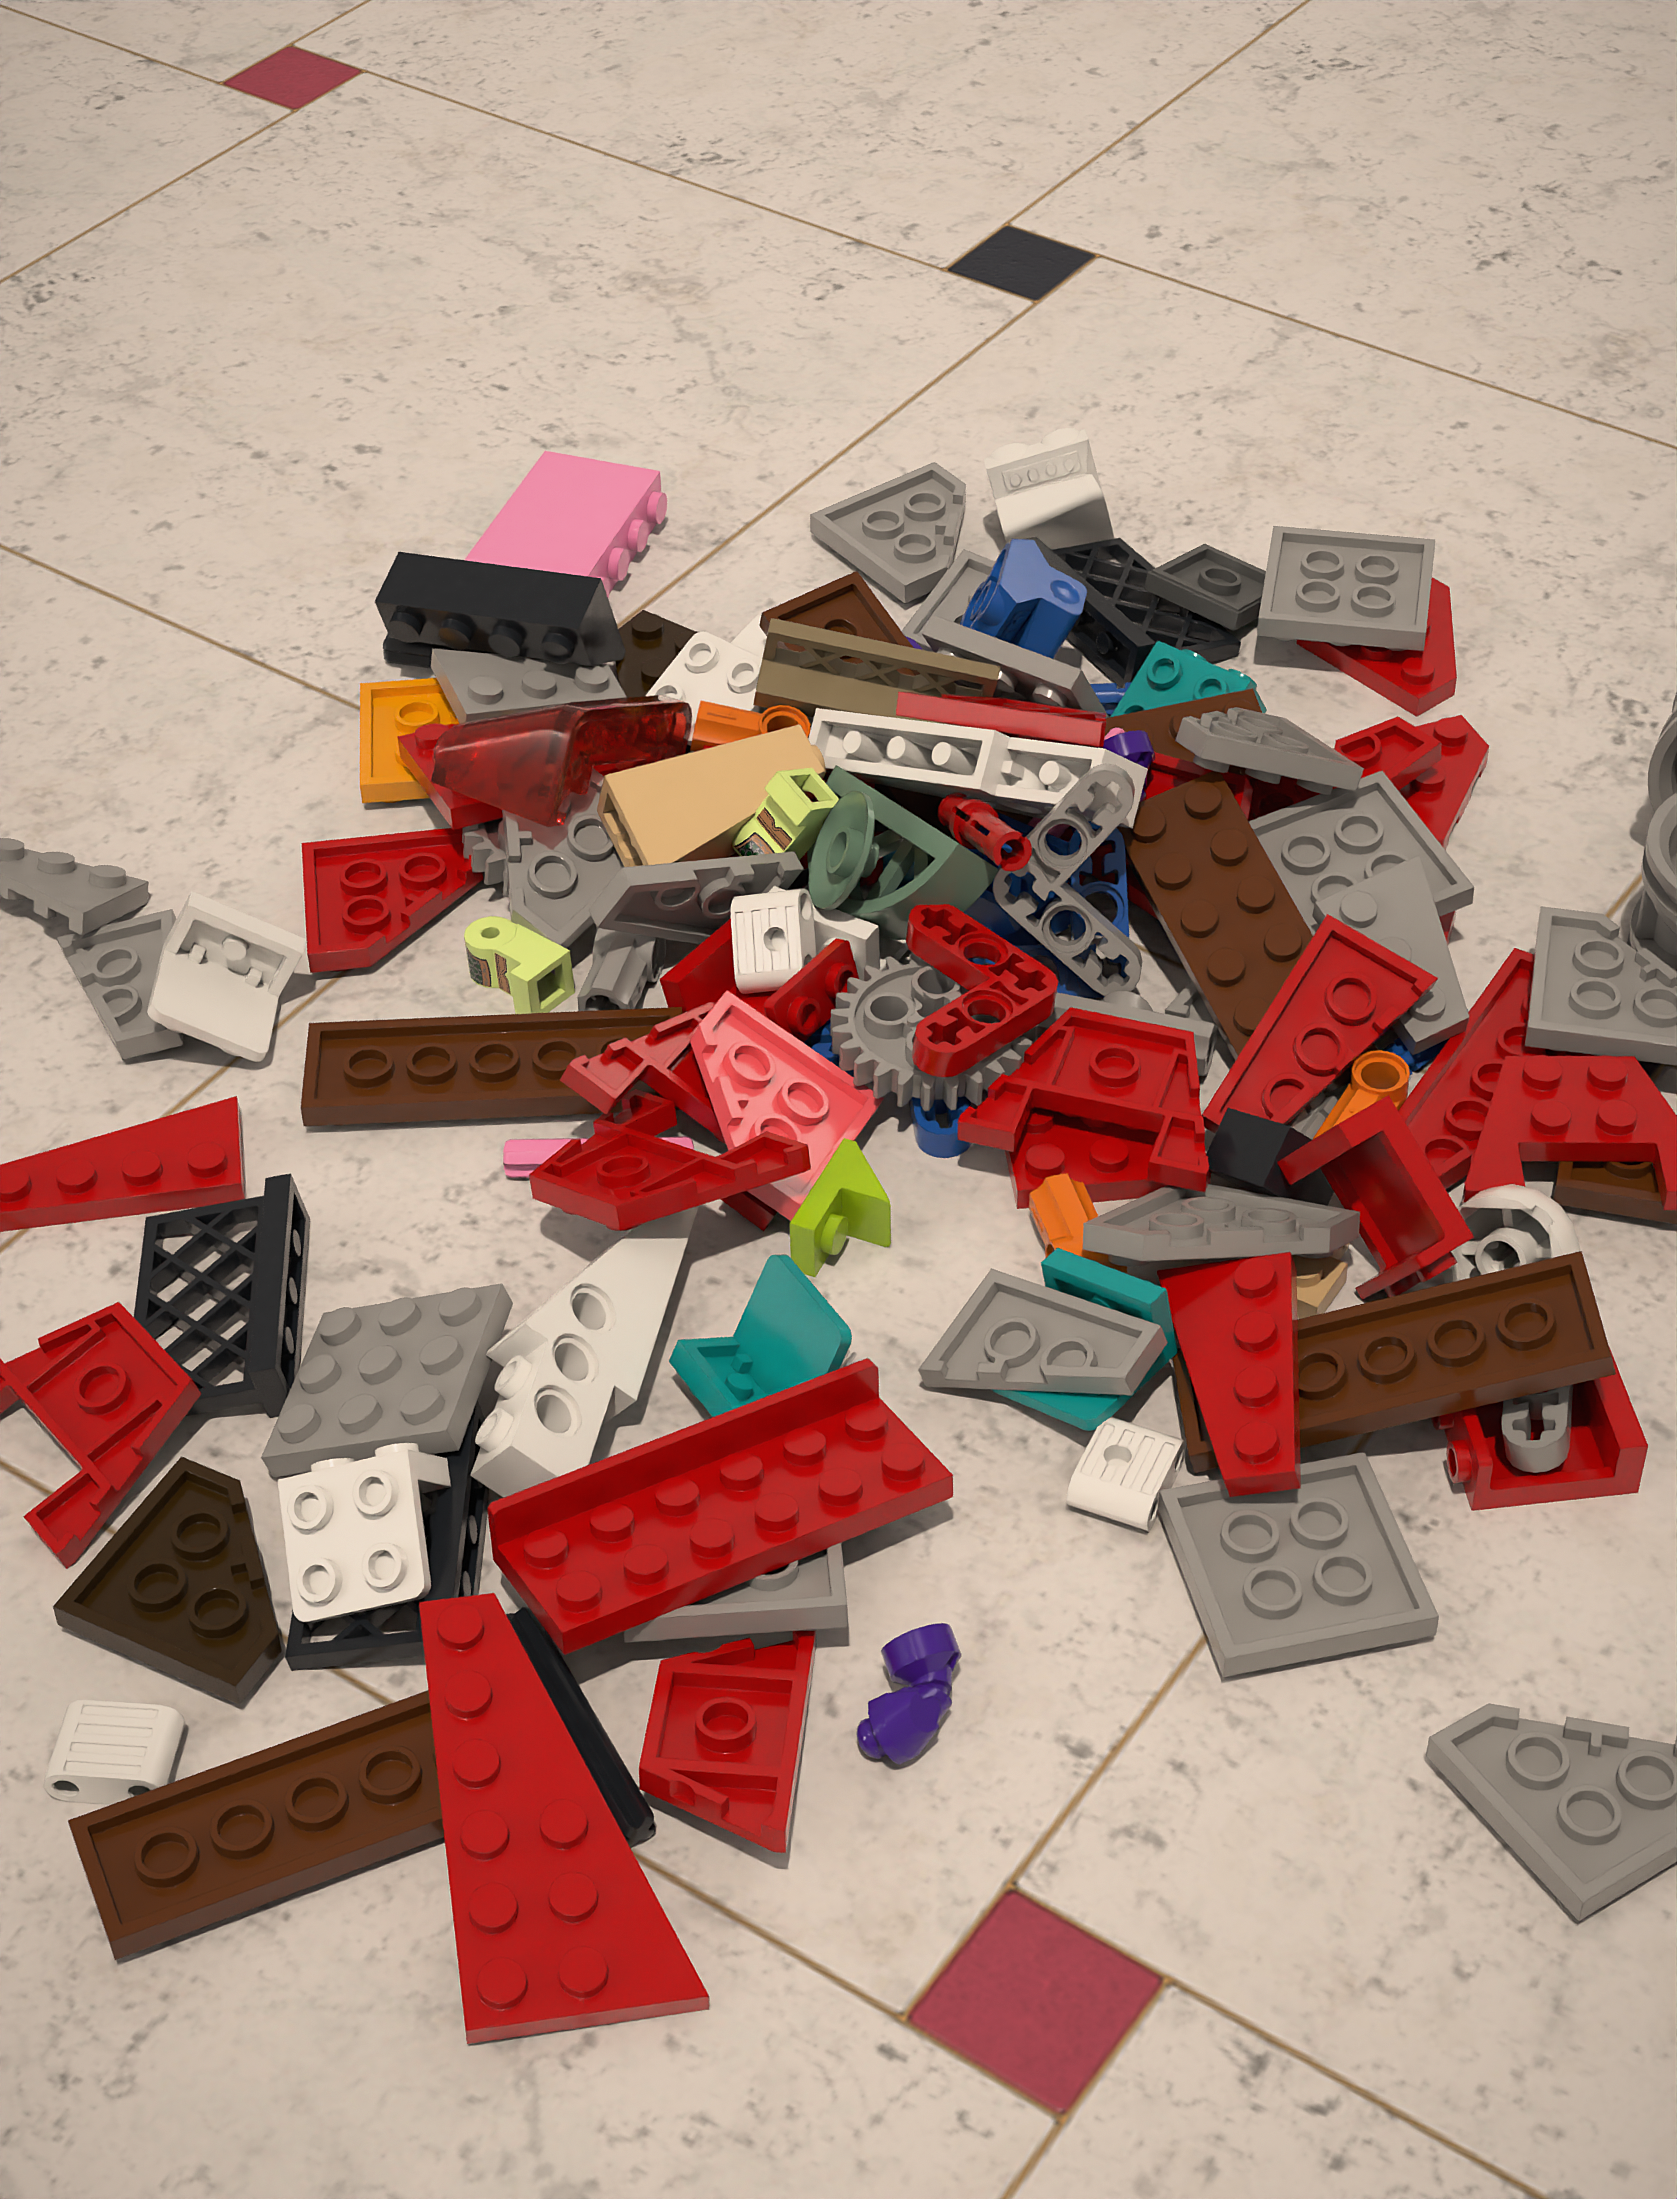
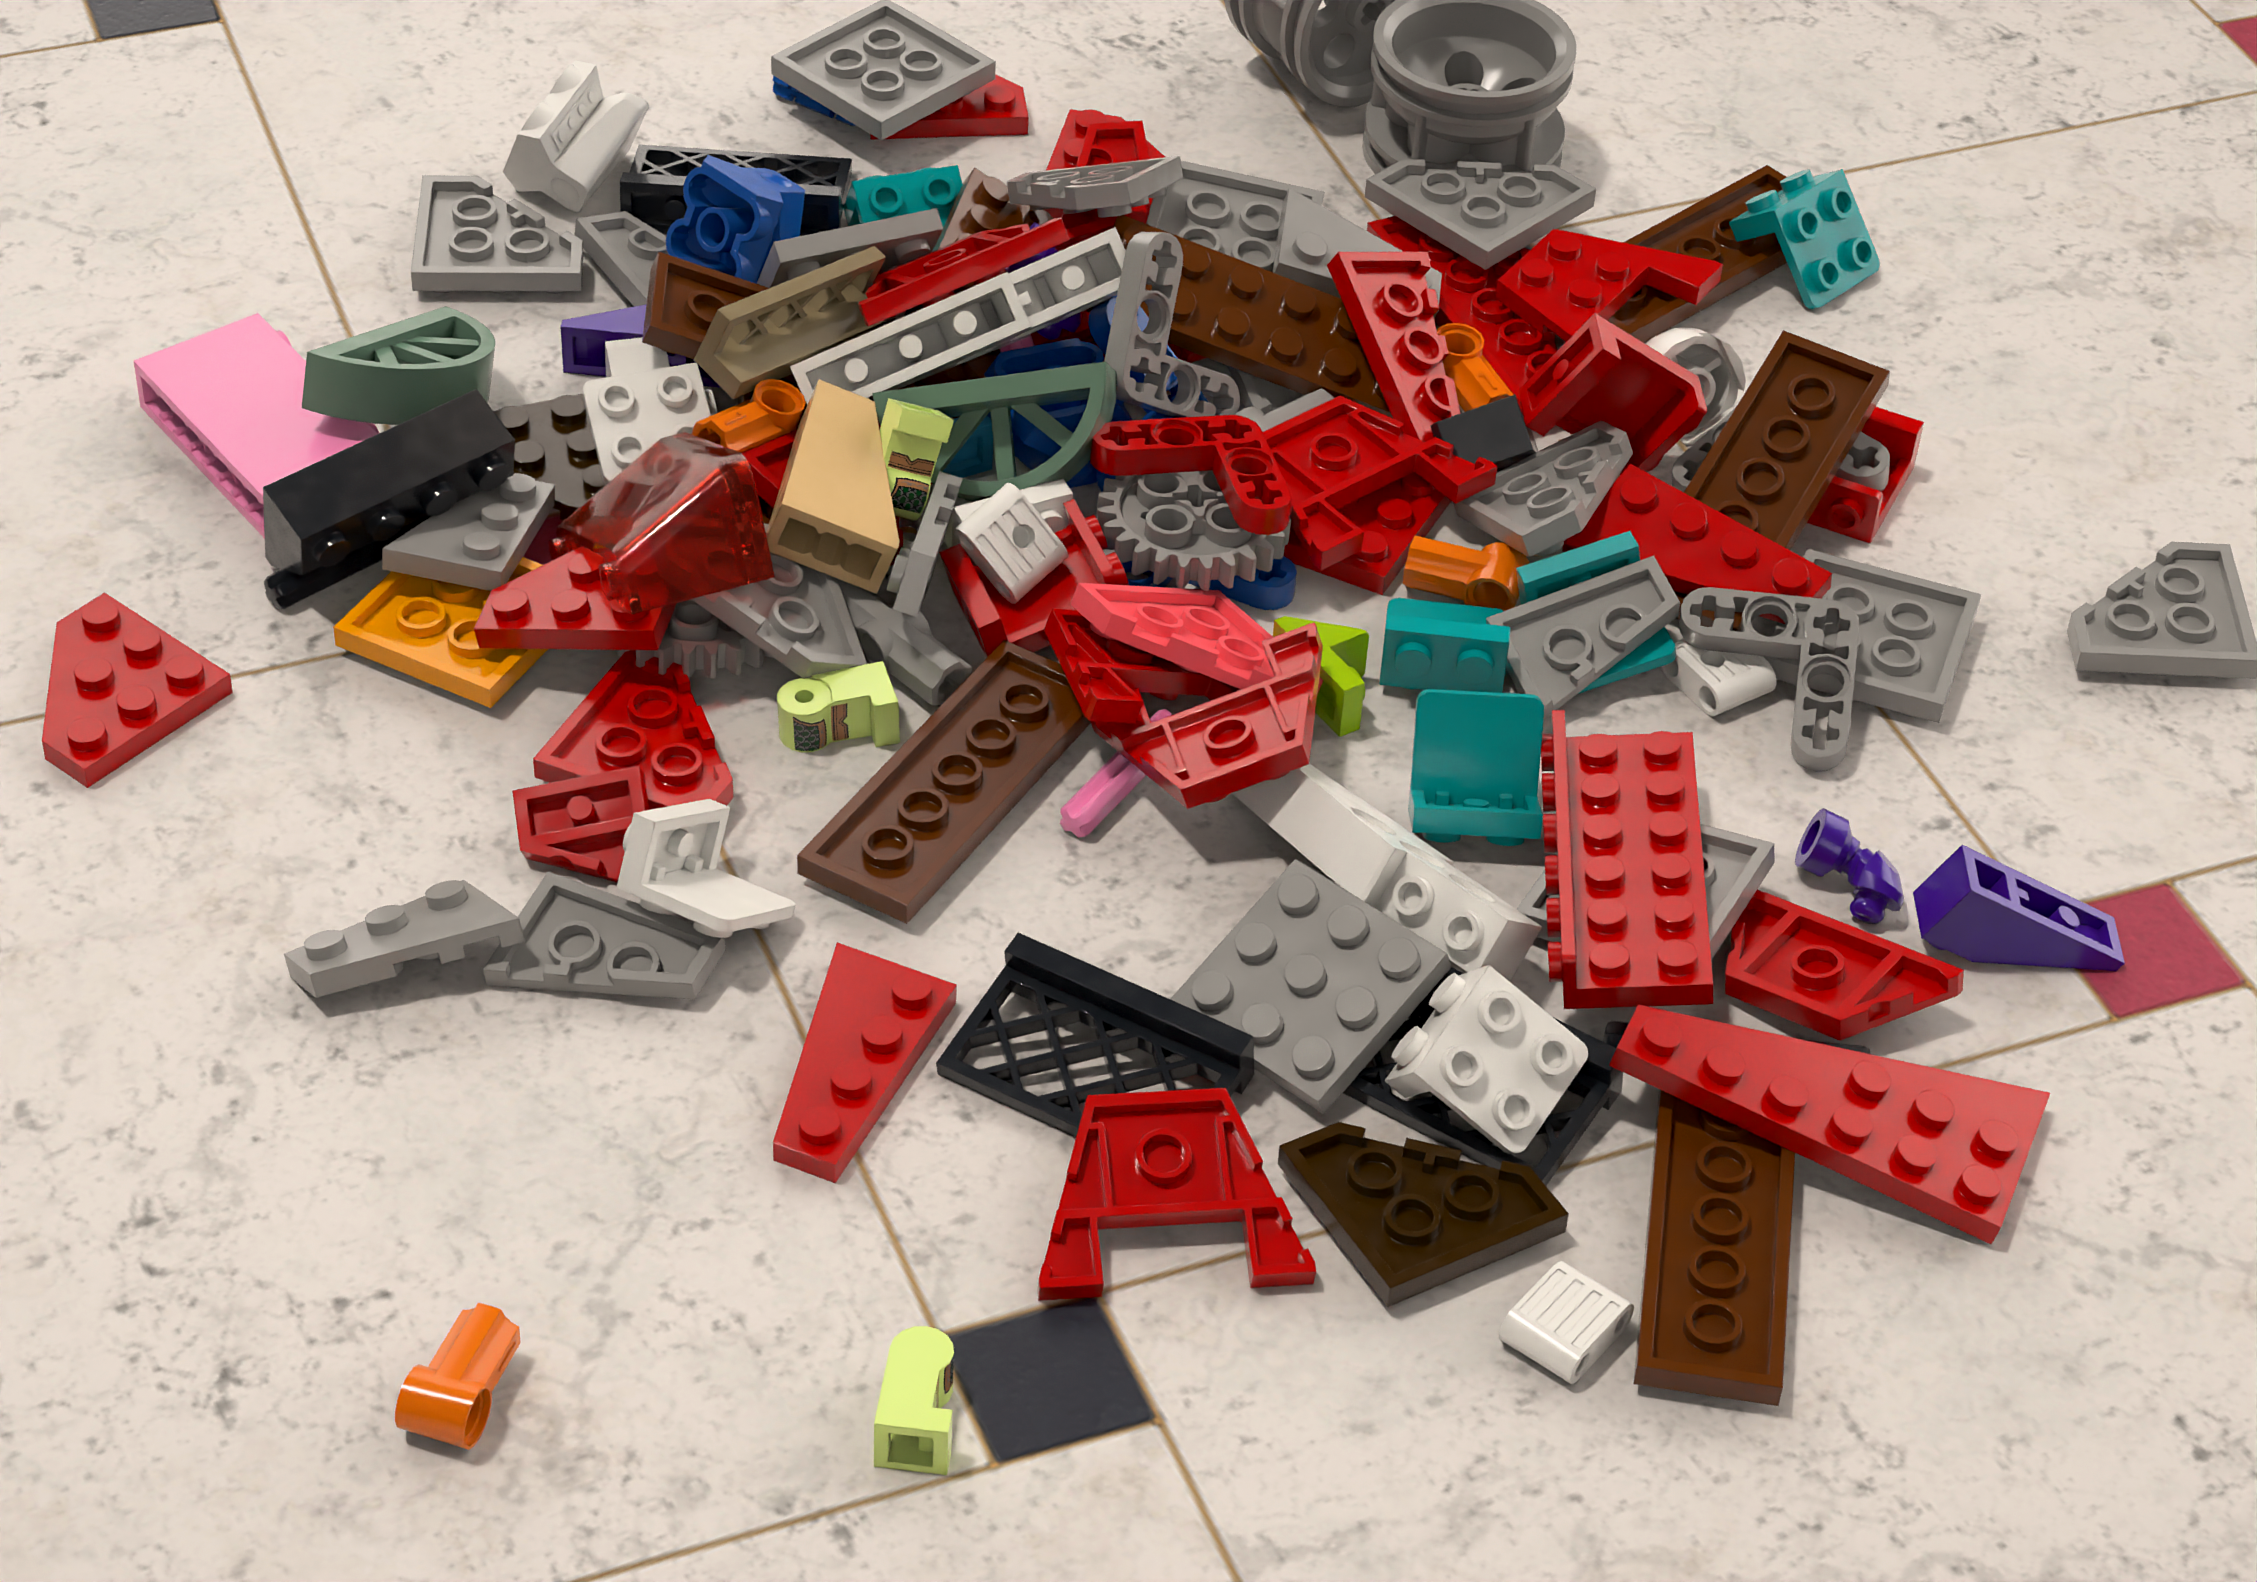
camera: 60 degrees left, 0 degrees up
(223, 638) = (119, 689): none -> plate
(262, 891) = (580, 820): none -> red wing
(656, 561) = (400, 368): none -> sand green window
(843, 850) = (975, 439): sand green dish -> none
(946, 1263) = (1443, 647): none -> teal bracket
(947, 1861) = (2010, 918): none -> dark purple slope
(983, 814) = (1096, 346): red pin -> none
(1181, 1501) = (1800, 641): none -> light grey beam
(1211, 585) = (775, 130): dark grey plate -> none

